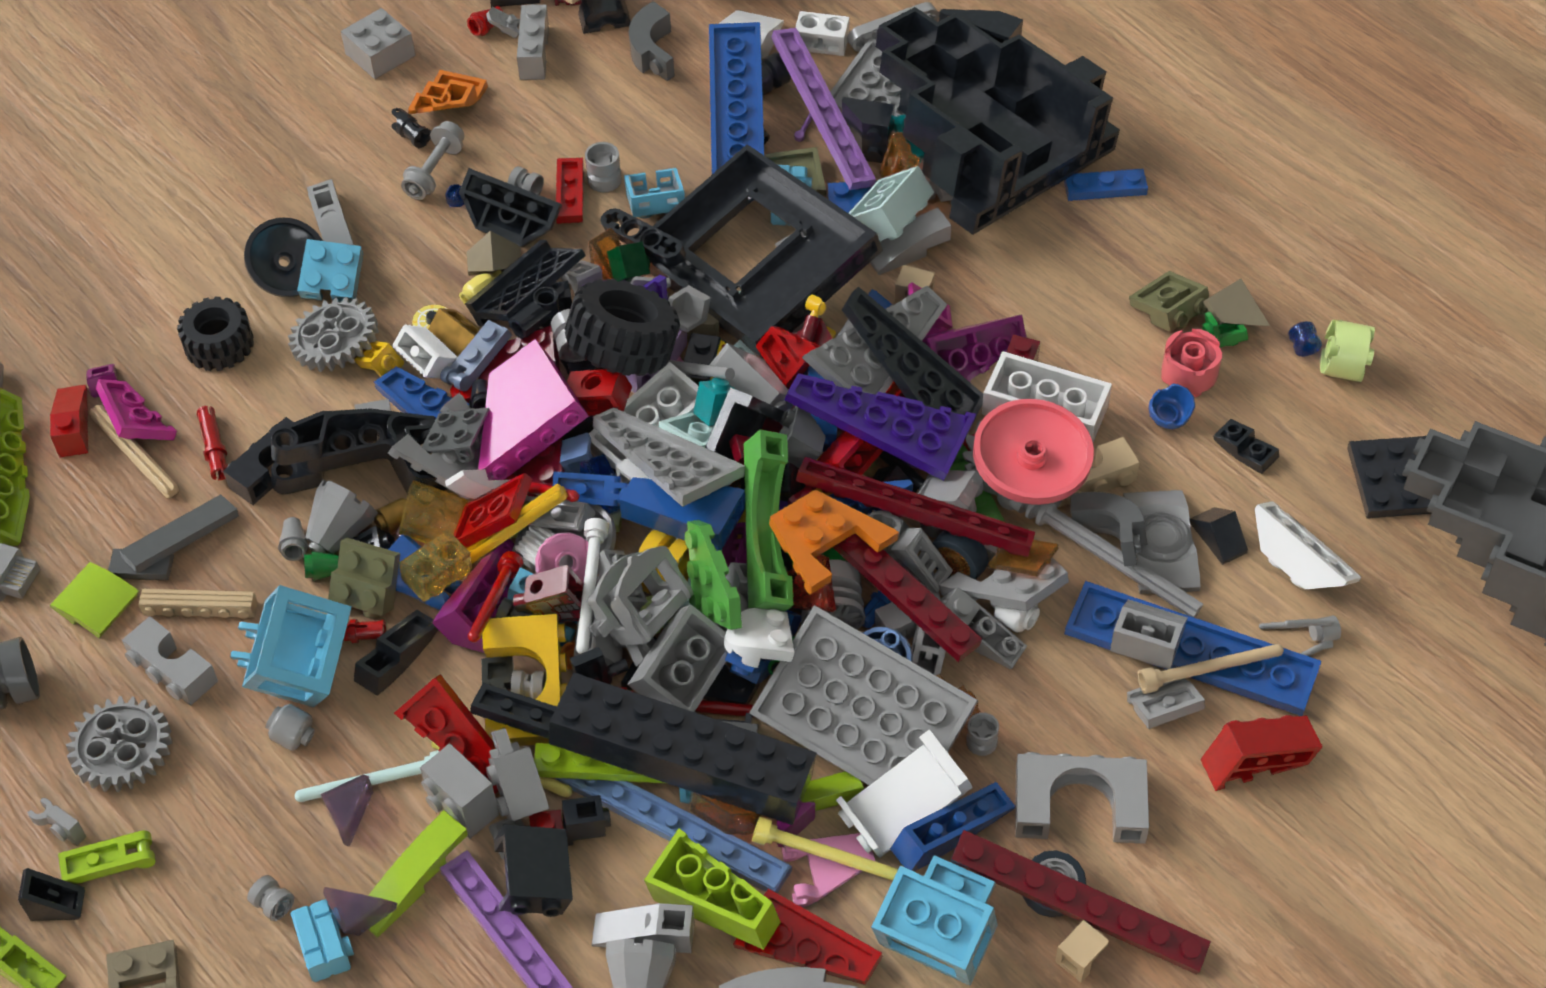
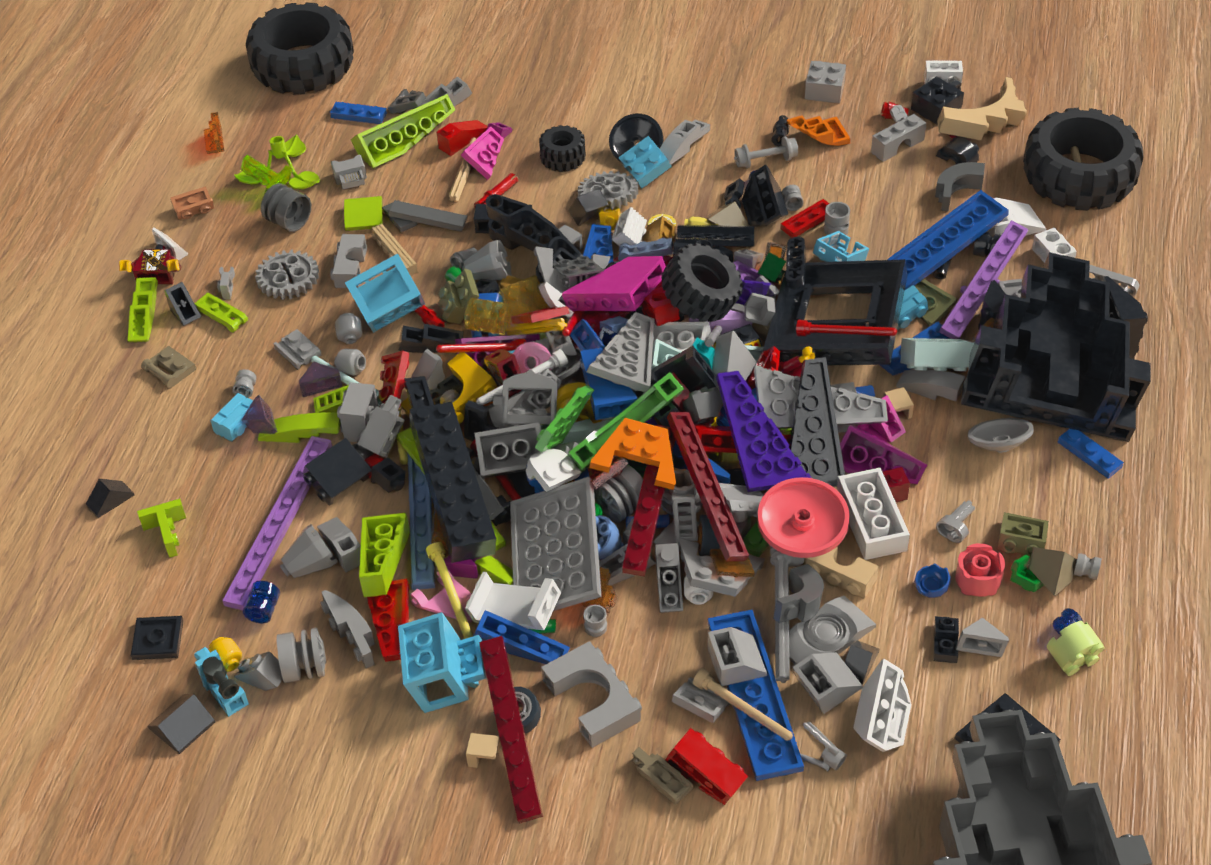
camera: 55 degrees right, 5 degrees down
(262, 805) = (297, 349): none -> light grey plate
(348, 367) = (587, 206): none -> black slope
(351, 756) = (350, 361): none -> light grey head
(398, 792) = (332, 396): none -> lime slope
(461, 226) = (734, 192): none -> black plate
(463, 674) = (430, 367): none -> light grey slope
(768, 285) = (805, 328): none -> red piece
(1032, 230) = (1000, 434): none -> light grey dish
(1110, 349) = (952, 525): none -> light grey piece
(1232, 574) = (826, 679): none -> light grey slope
(1237, 796) = (662, 775): none -> dark tan hinge
(1253, 276) = (1087, 566): none -> light grey wheel
(1275, 414) = (982, 639): none -> light grey slope

